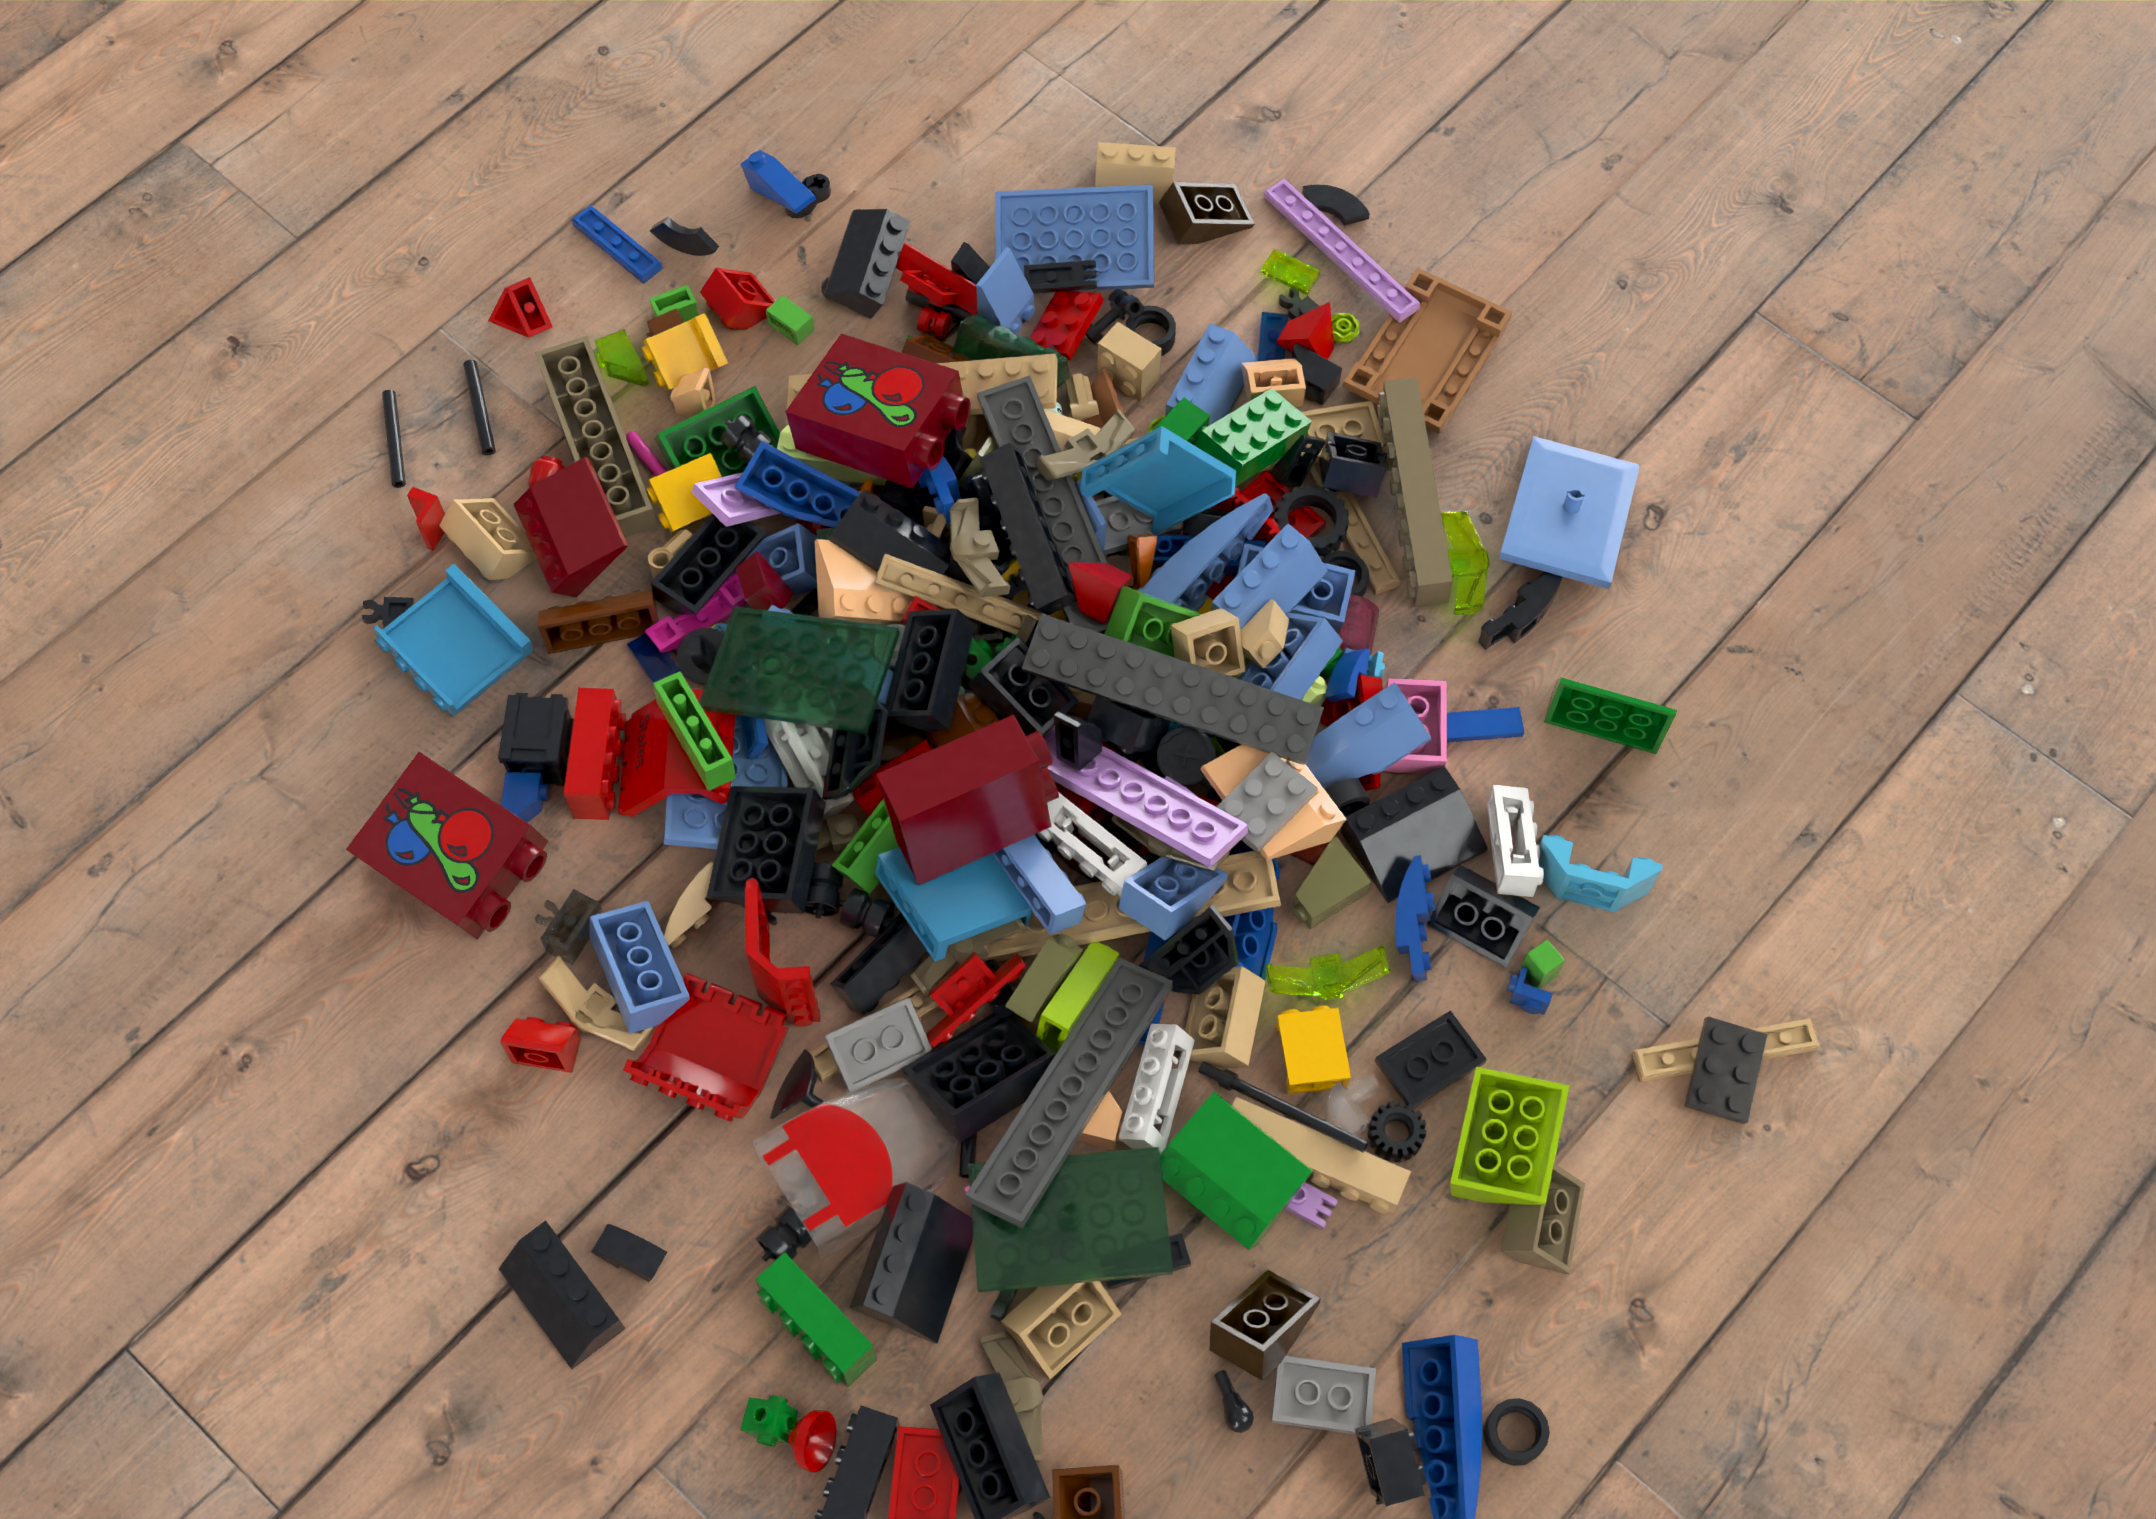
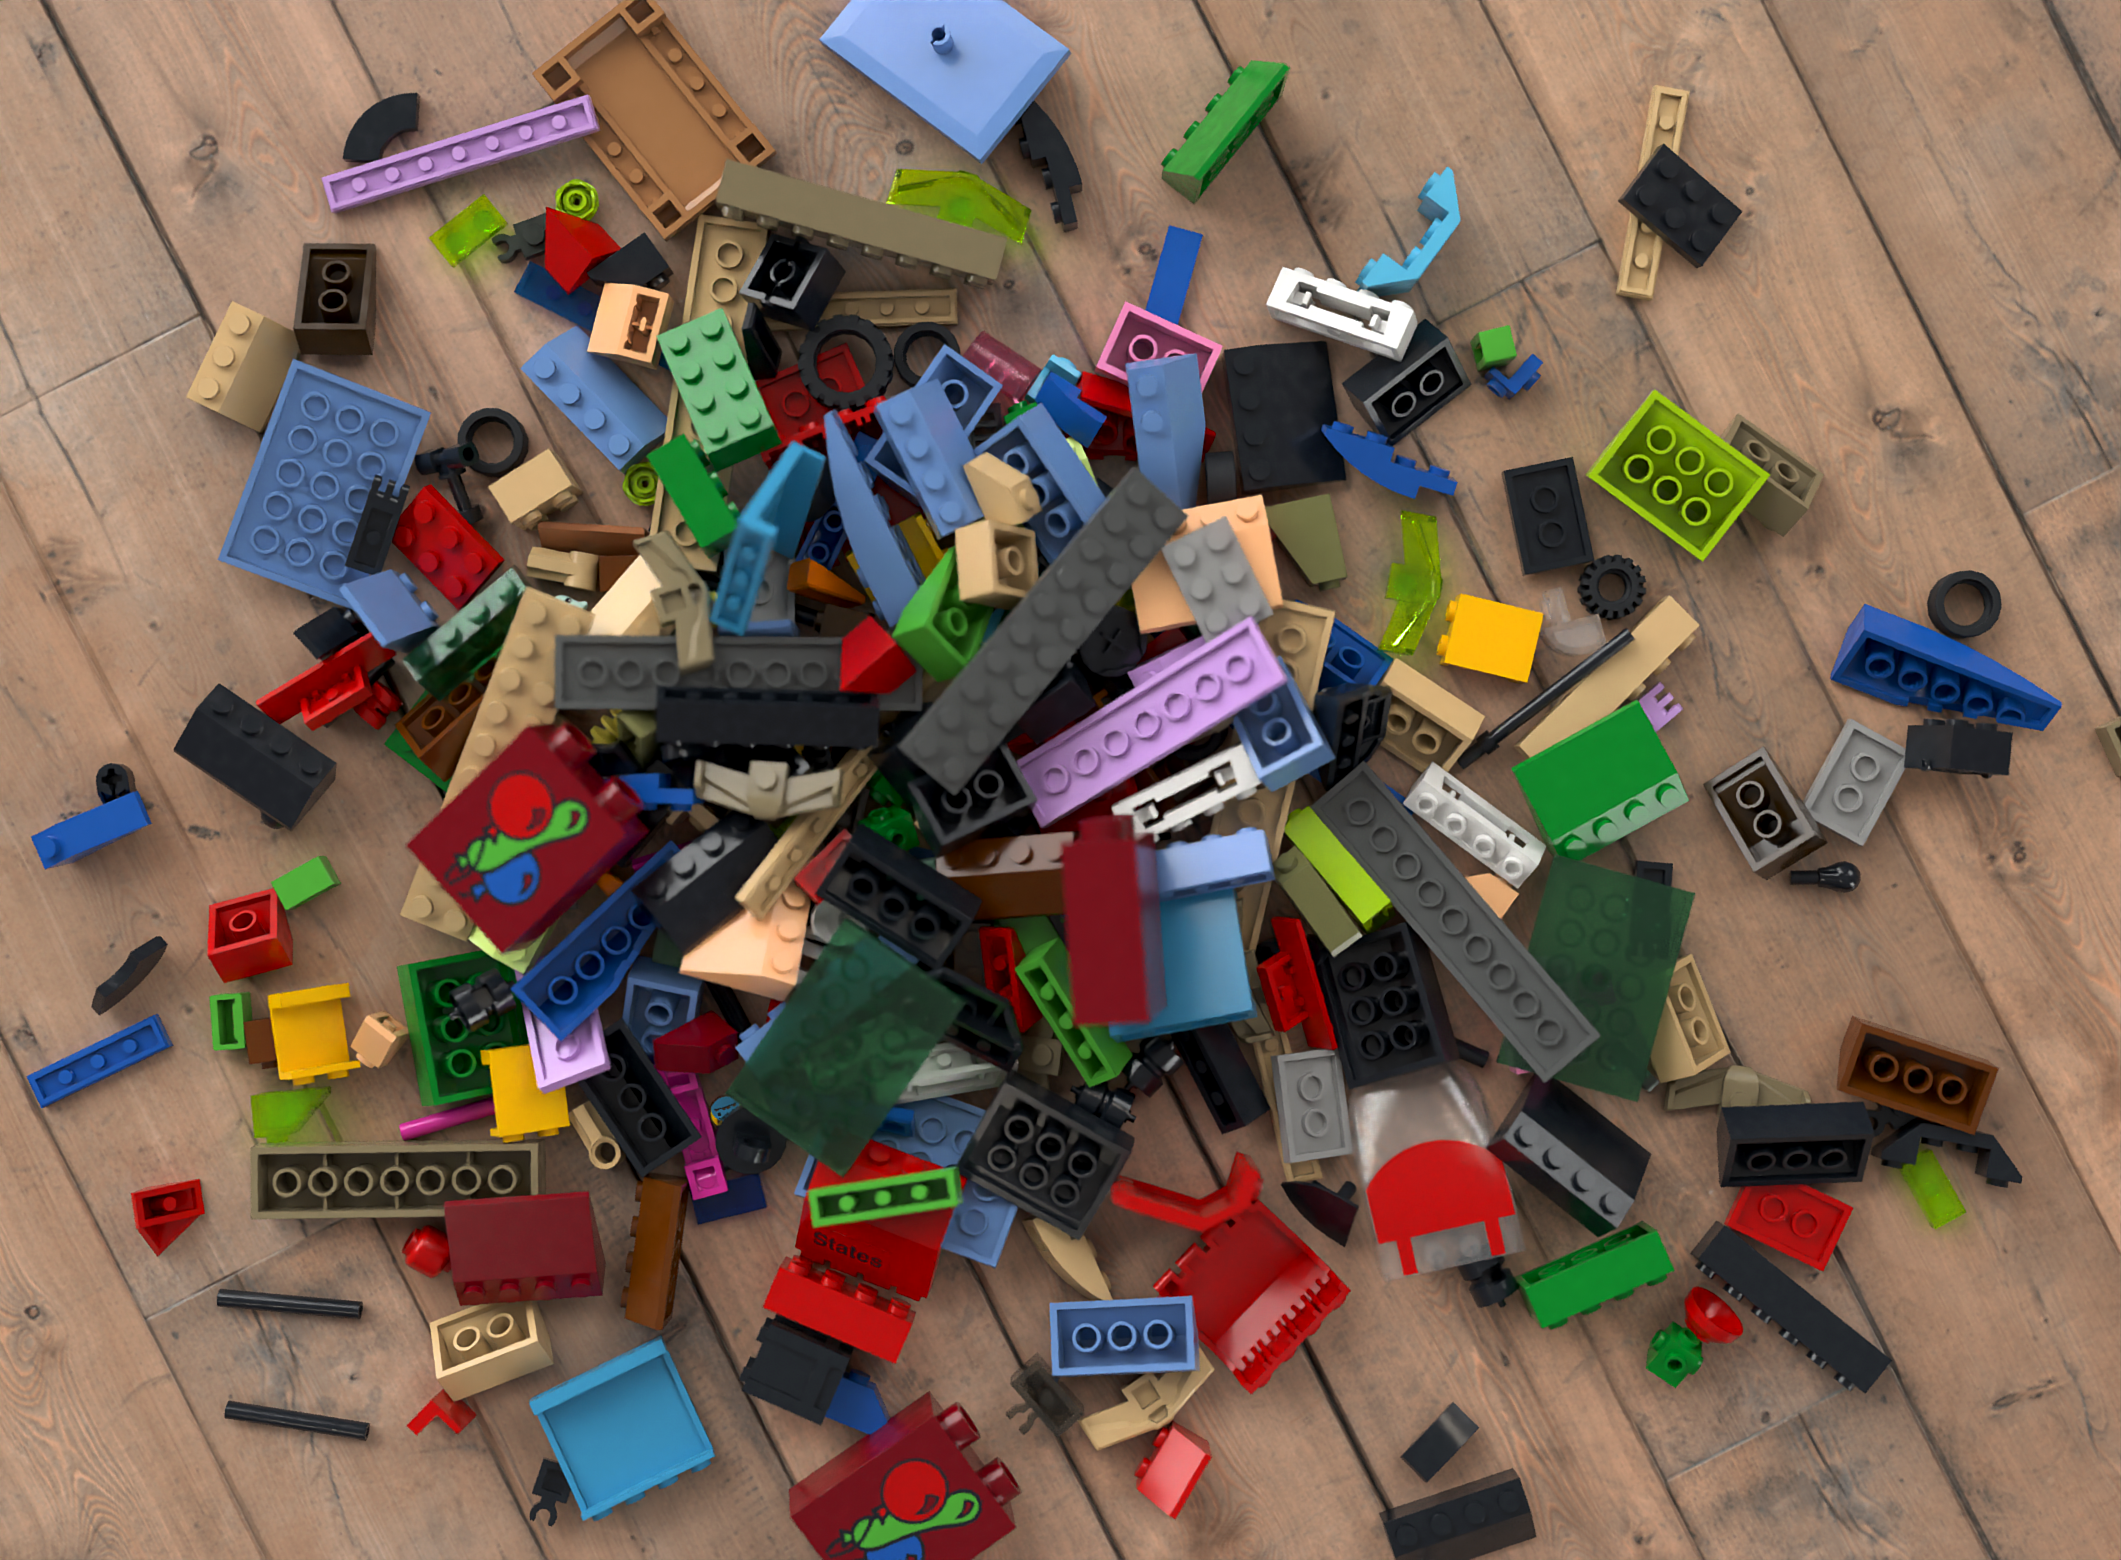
camera: 70 degrees left, 25 degrees up
(1076, 740) = (1059, 761): black slope -> none

